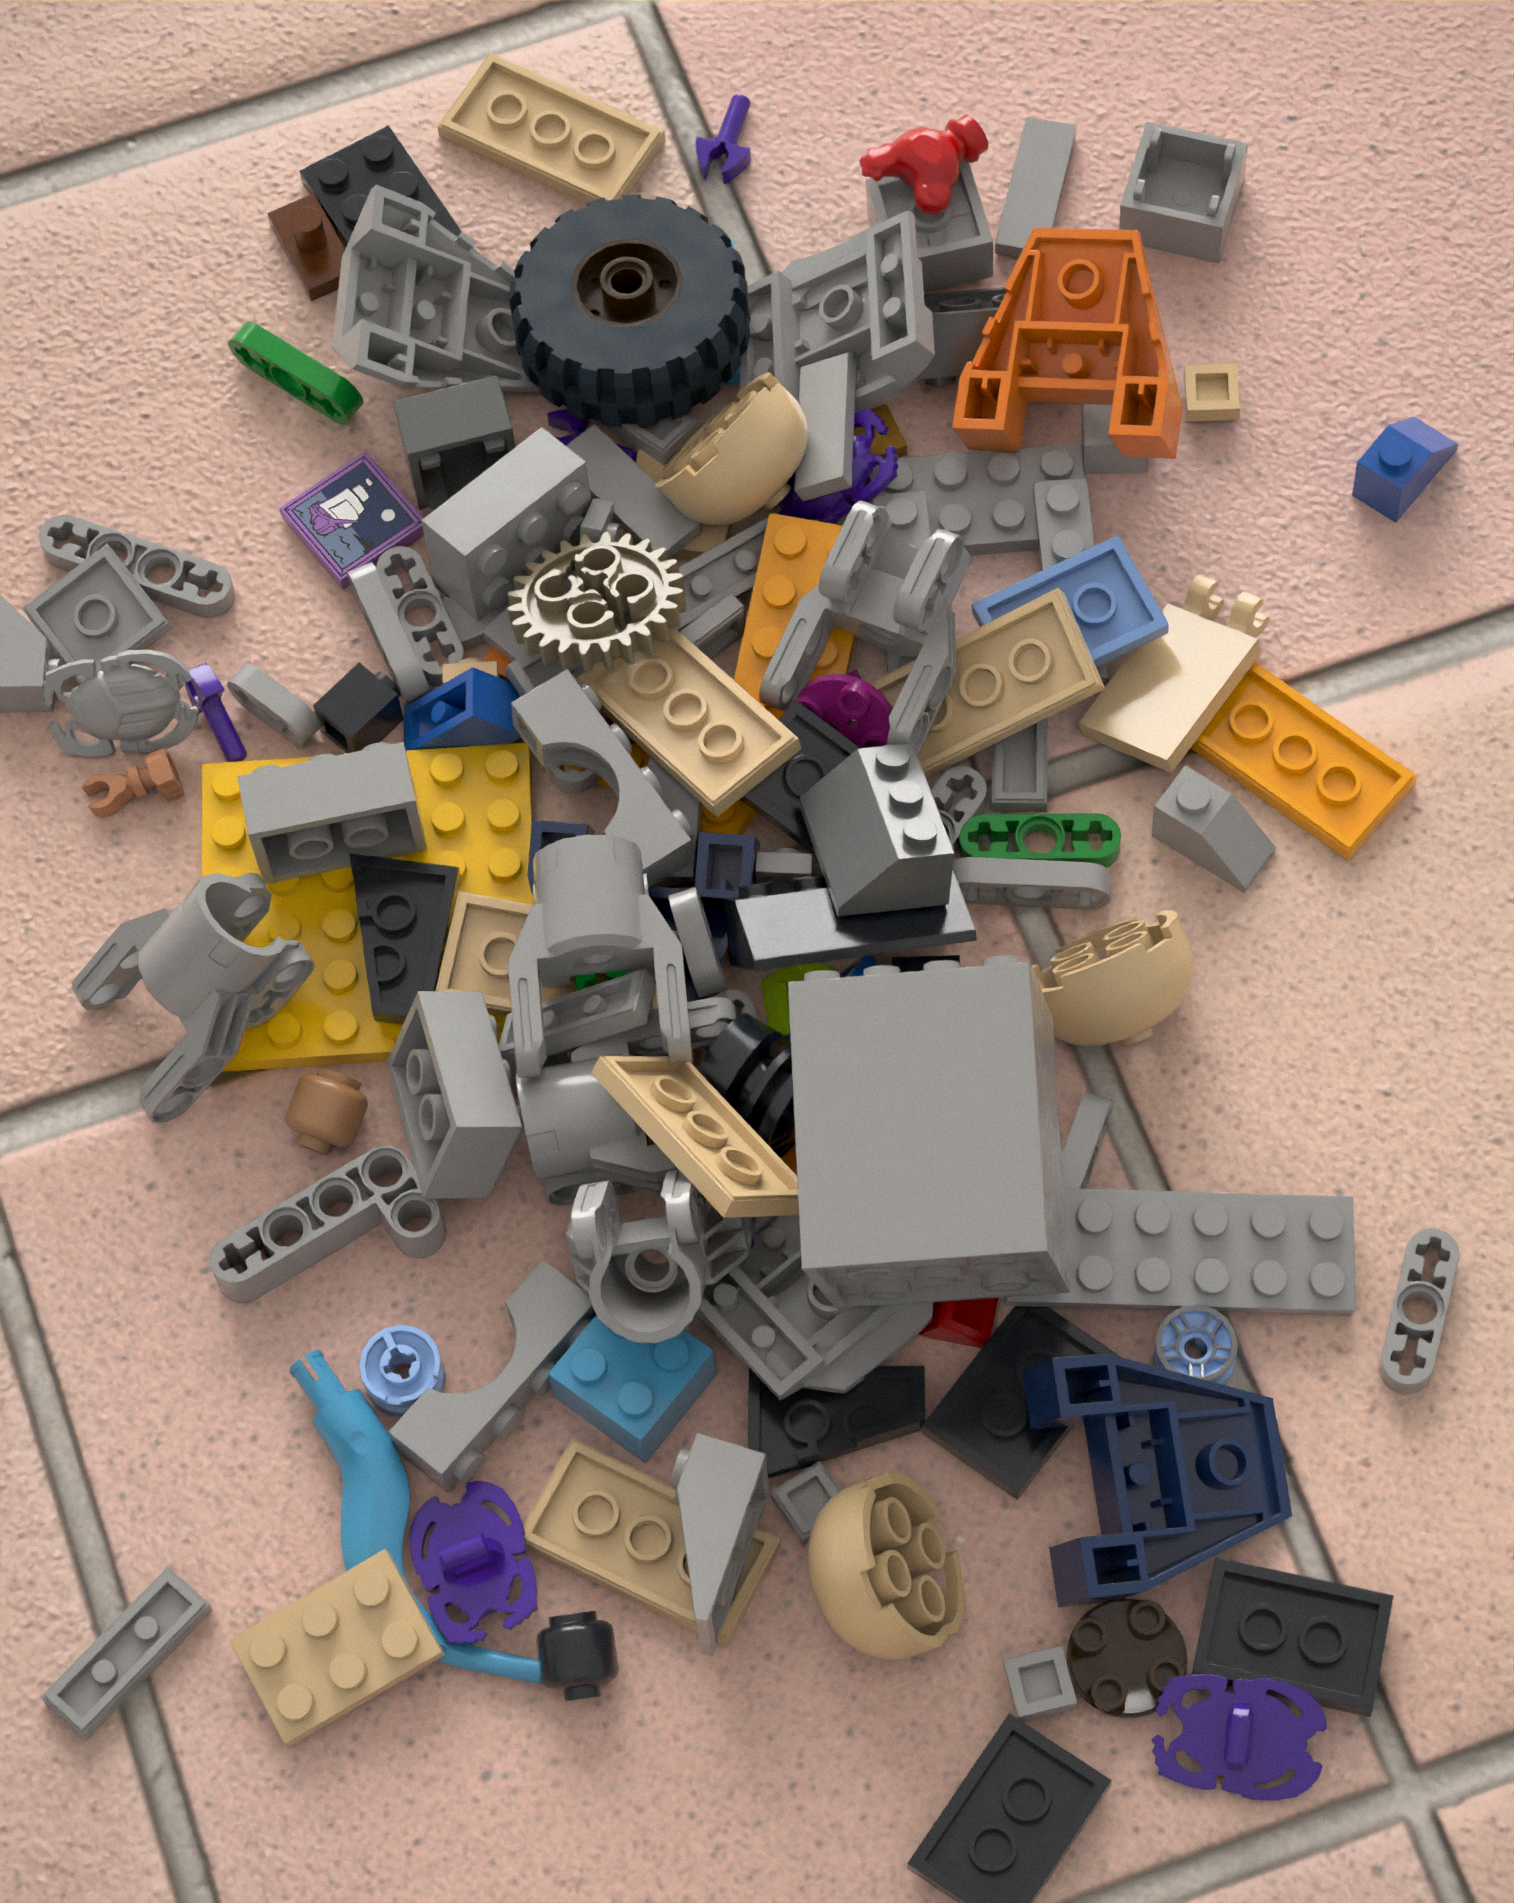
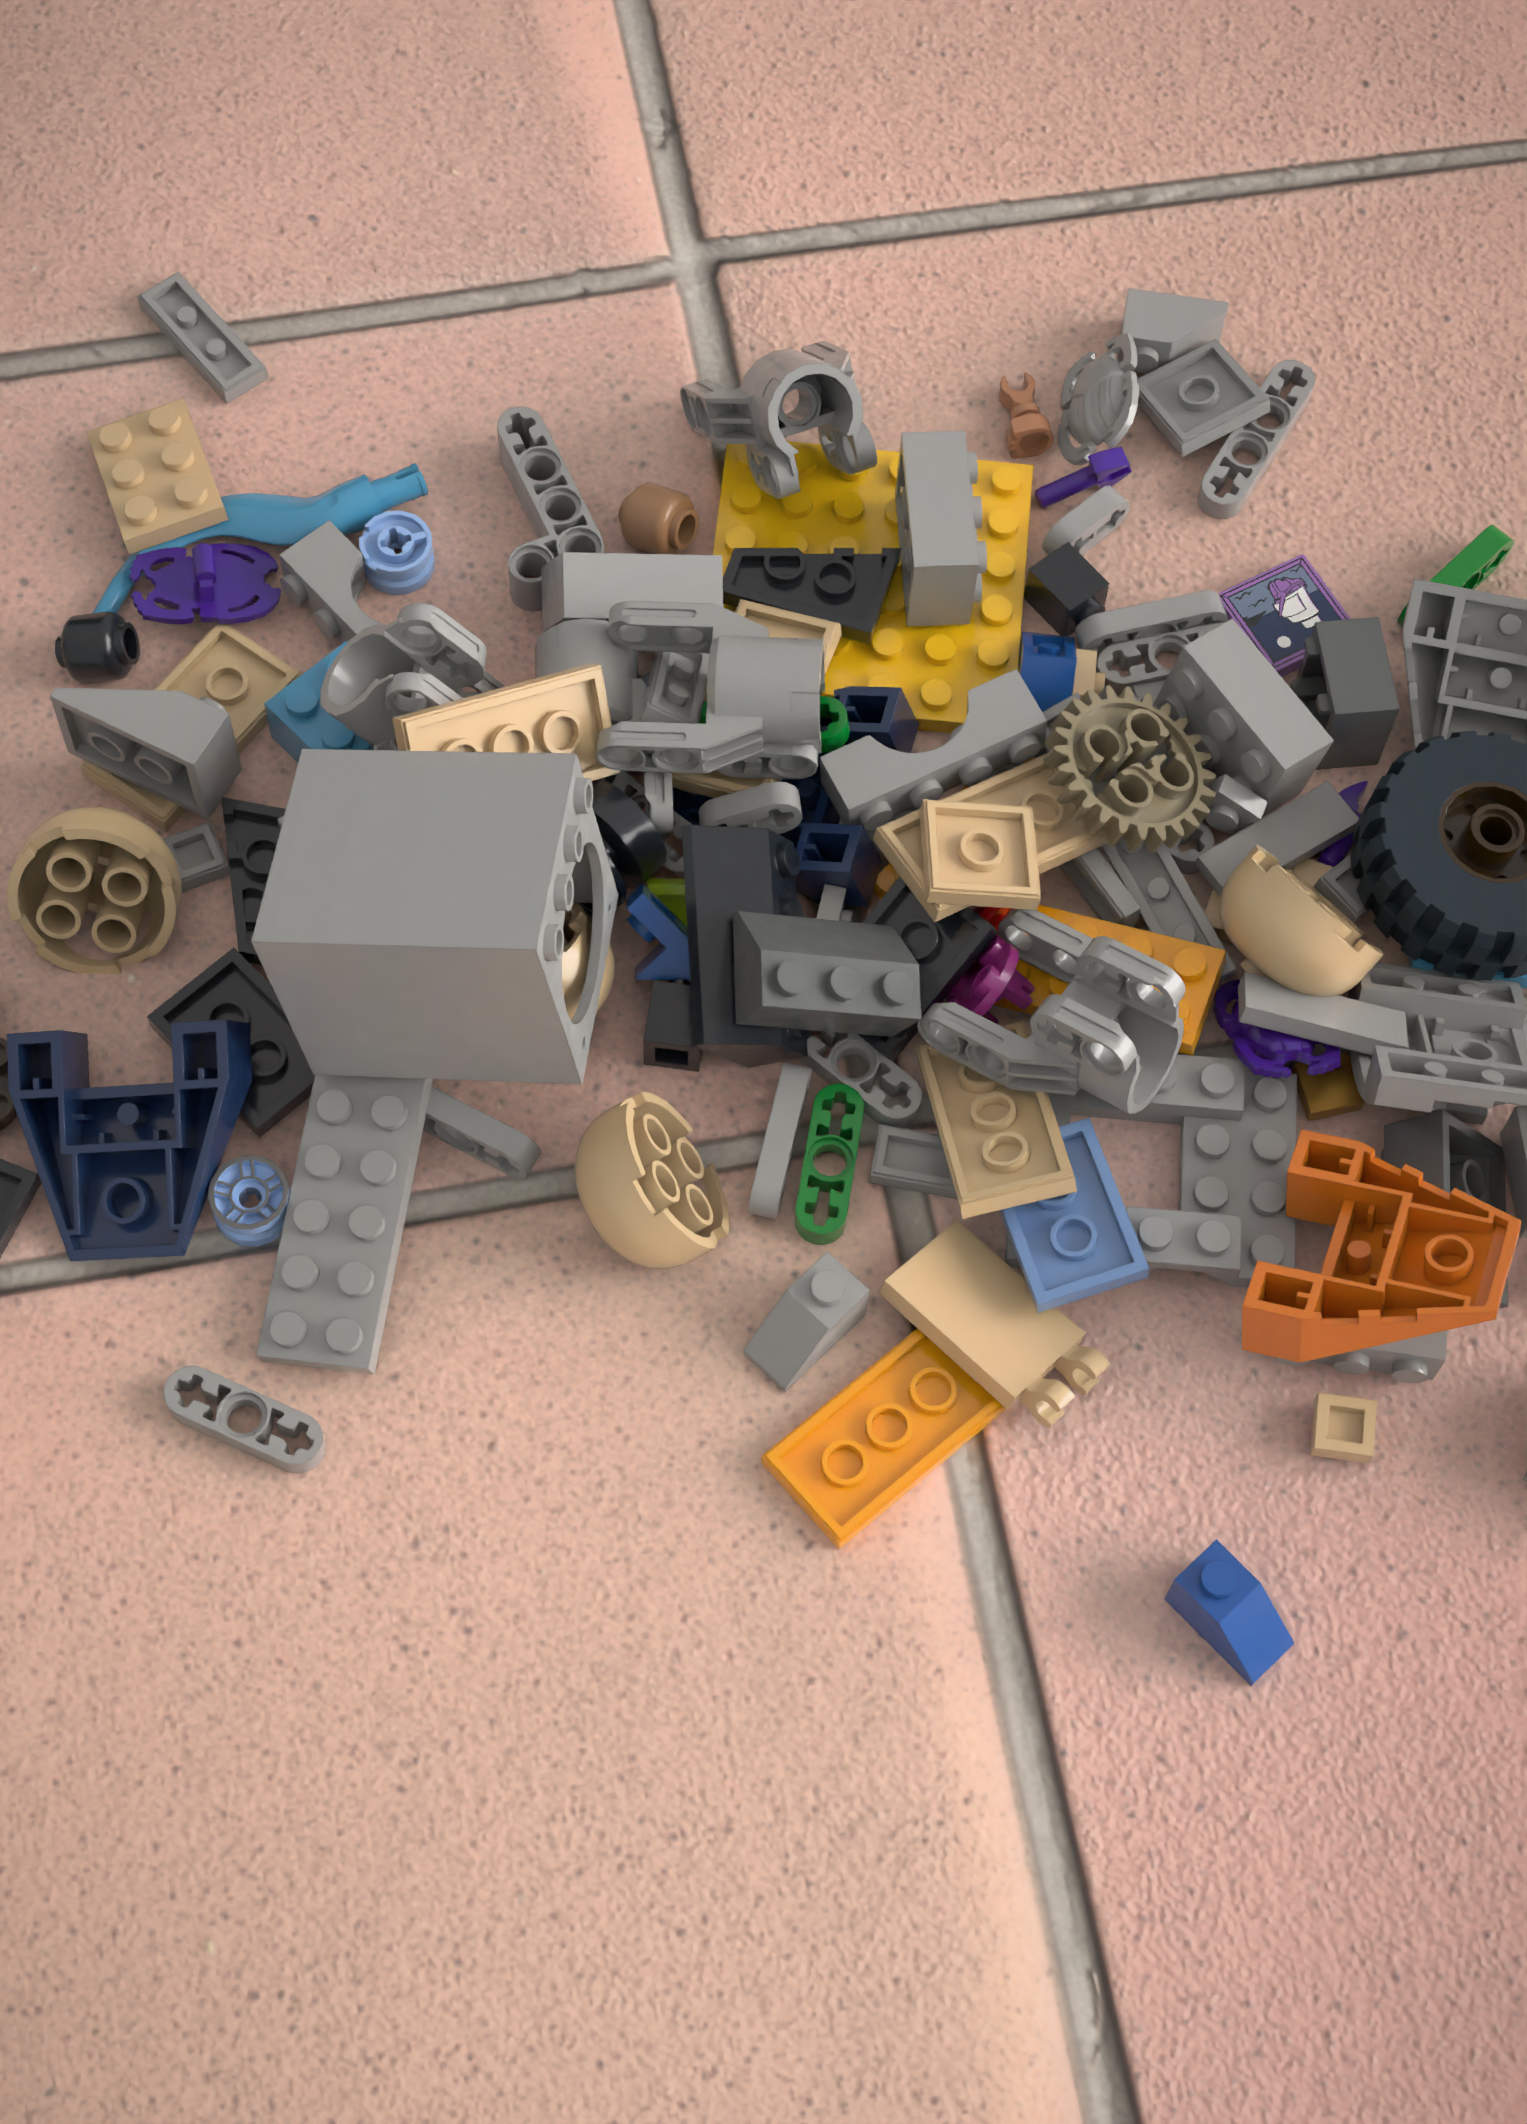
camera: 90 degrees right, 0 degrees up
(727, 711) = (979, 854): none -> tan tile

